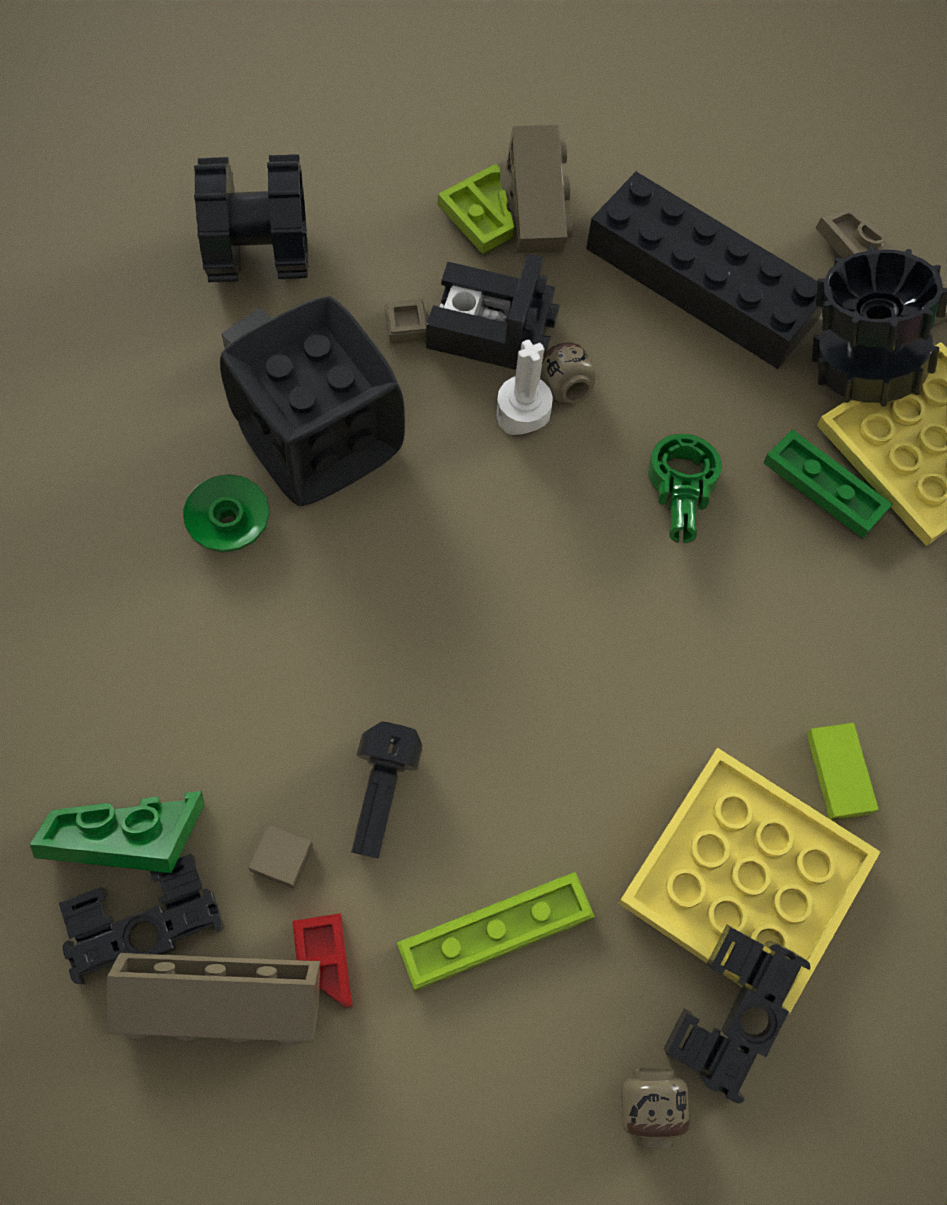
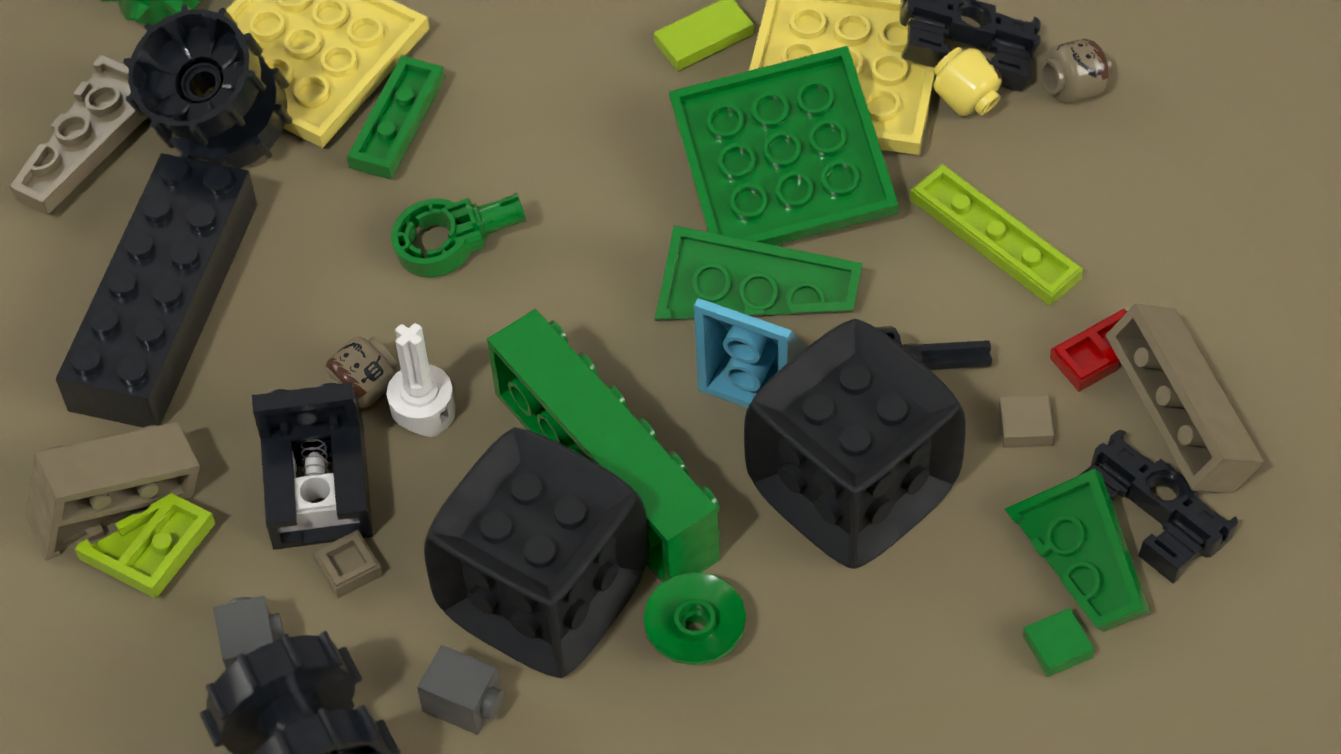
camera: 105 degrees left, 10 degrees down
(59, 776) = (1058, 642): none -> green tile
(290, 662) = (854, 442): none -> black piece
(369, 237) = (245, 626): none -> dark grey brick
(400, 494) = (566, 401): none -> green brick
(432, 633) = (739, 352): none -> medium azure slope
(537, 674) = (752, 278): none -> green wing
(654, 767) = (784, 150): none -> green plate
(676, 980) = (967, 82): none -> light yellow head

